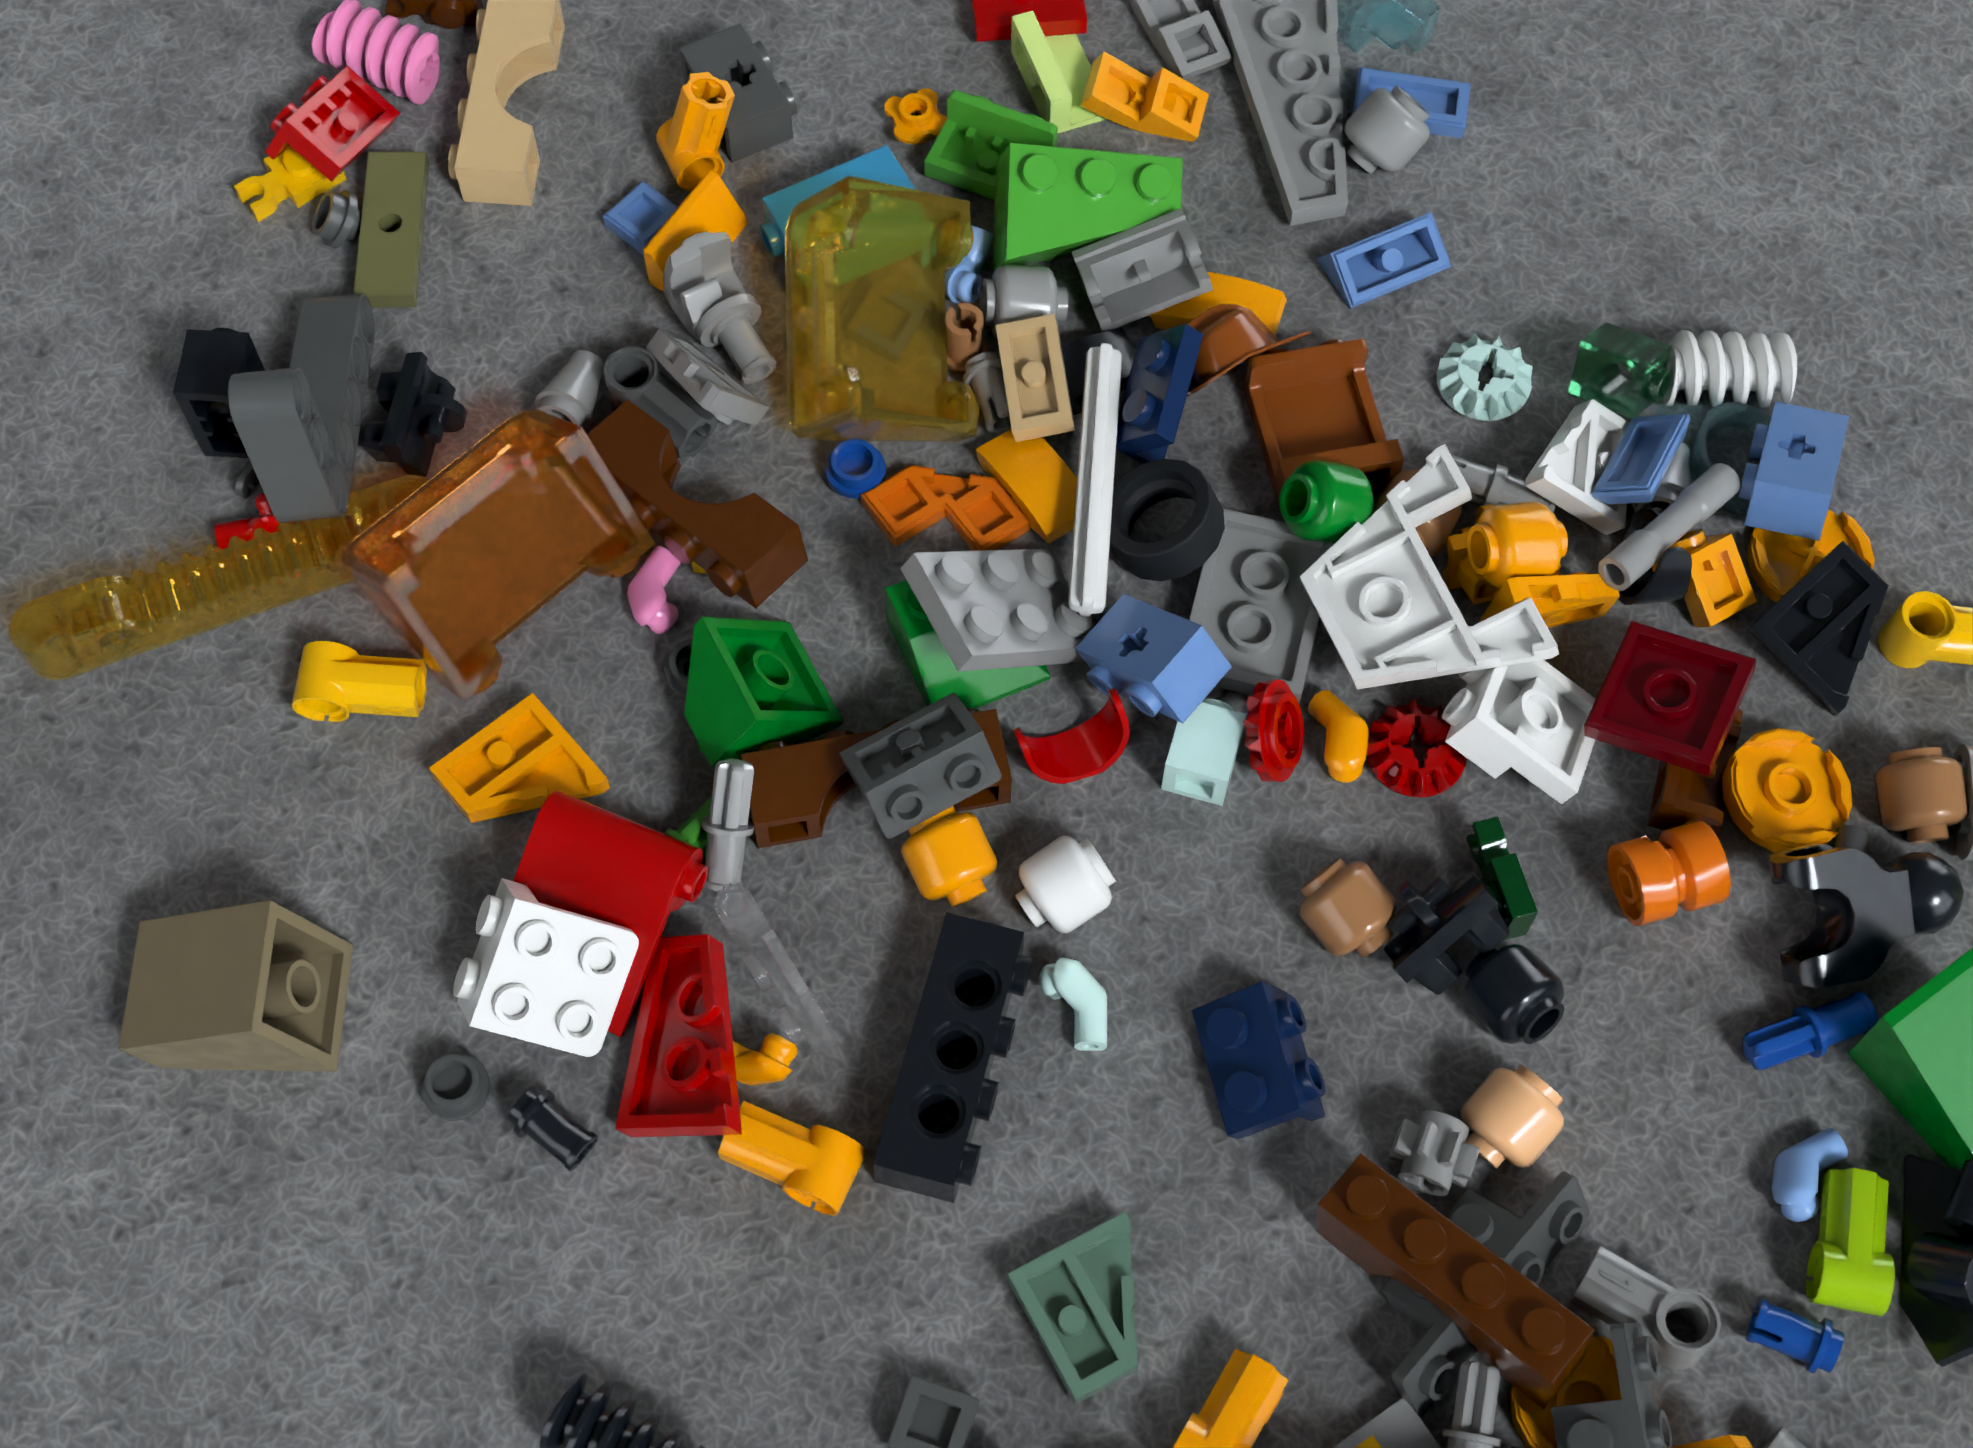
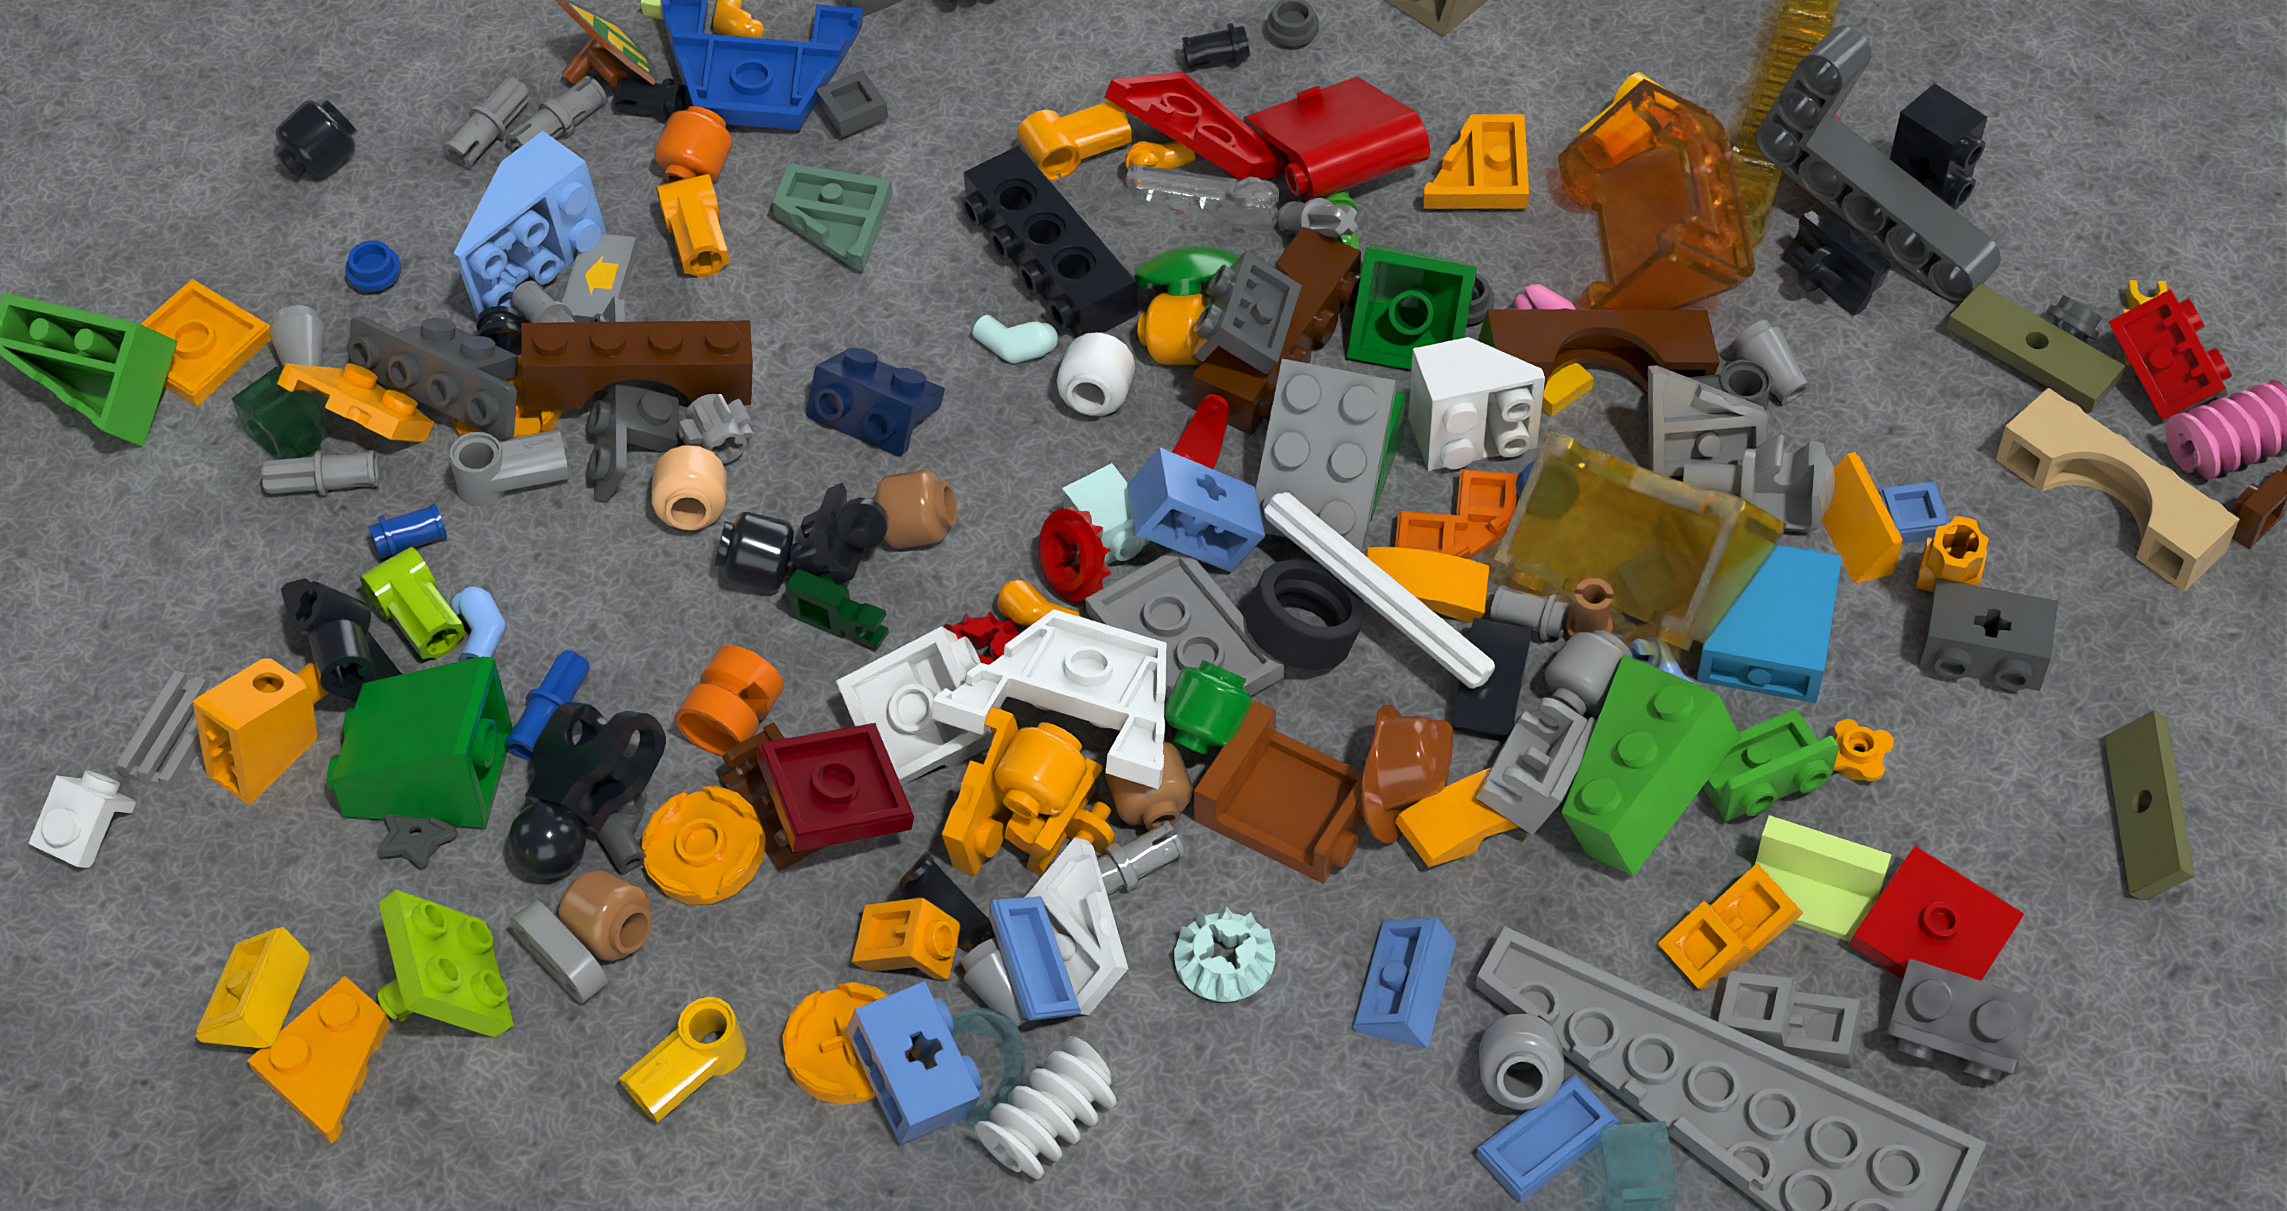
camera: 135 degrees right, 10 degrees down
(544, 972) = (1307, 68): white bracket -> none
(850, 541) = (1472, 403): none -> white slope
(882, 894) = (1182, 269): none -> green dish
(1035, 378) = (1502, 612): tan plate -> none
(1157, 392) = (1407, 678): dark blue bracket -> none
(1599, 377) = (1123, 1018): clear green brick -> none
(1646, 546) = (956, 946): light grey piece -> none
(1824, 625) = (783, 969): black wing -> none

